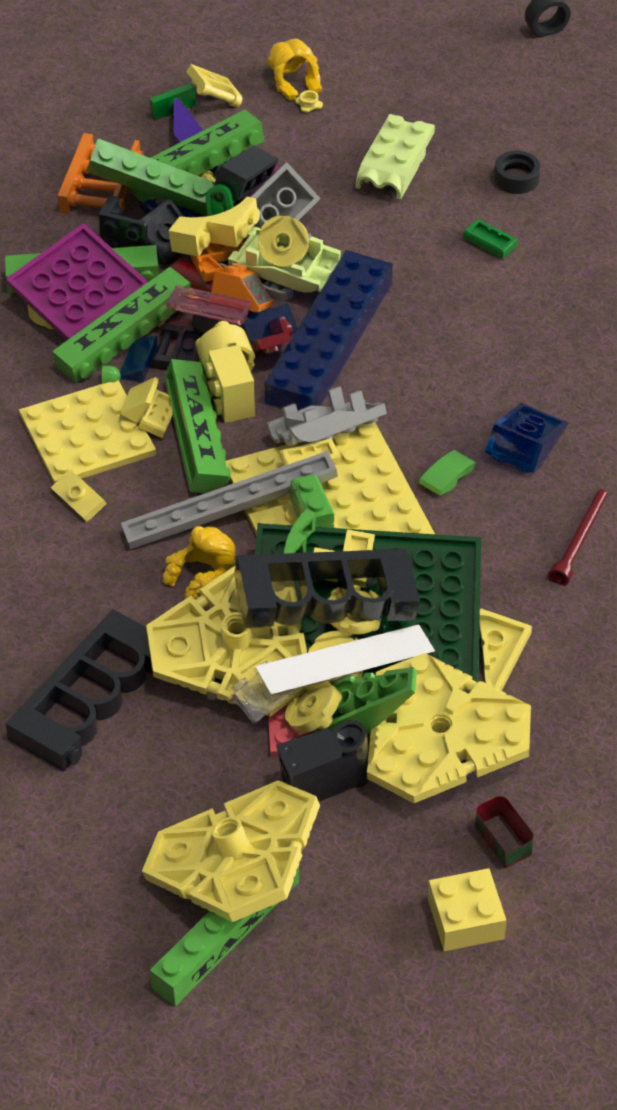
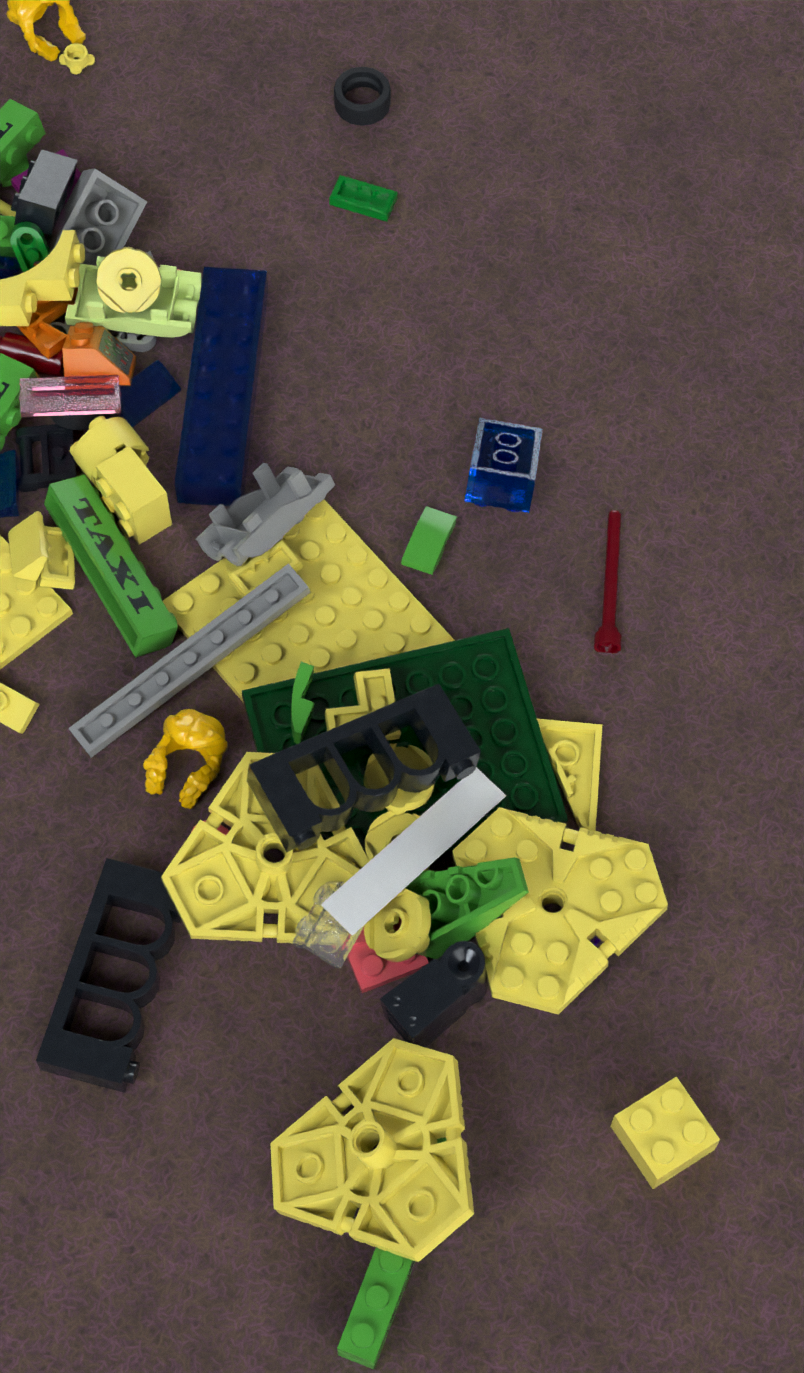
camera: 20 degrees left, 15 degrees up
(280, 331) = (162, 417): dark red bracket -> none
(308, 493) = (293, 640): bright green brick -> none
(395, 154) = (211, 110): yellowish green piece -> none
(493, 808) = (676, 995): dark red piece -> none

